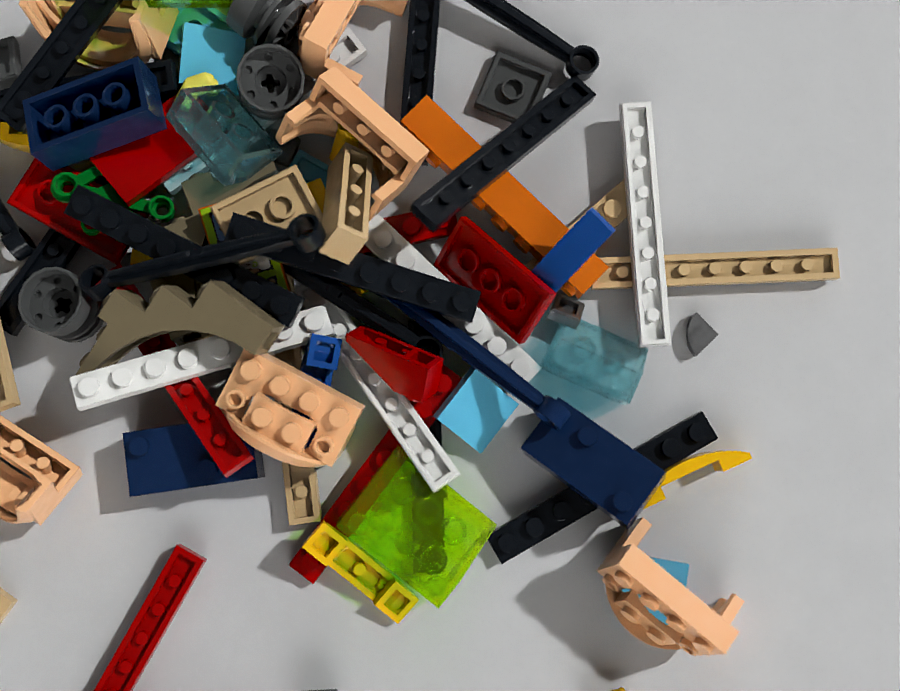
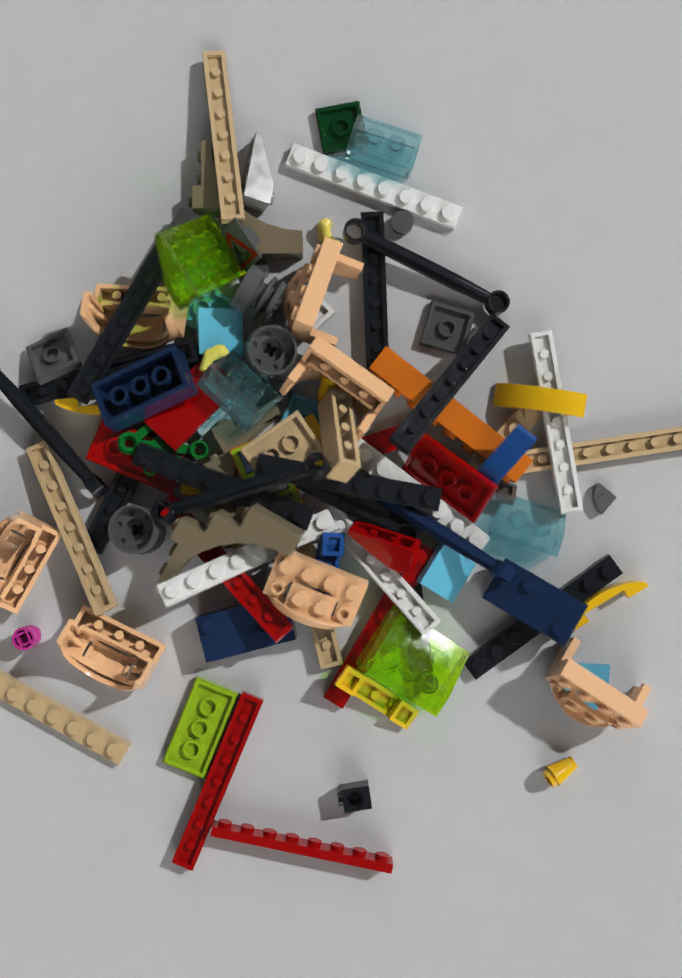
camera: 10 degrees left, 5 degrees up
(114, 588) = (200, 727): none -> lime tile
(629, 189) = (540, 399): none -> yellow slope

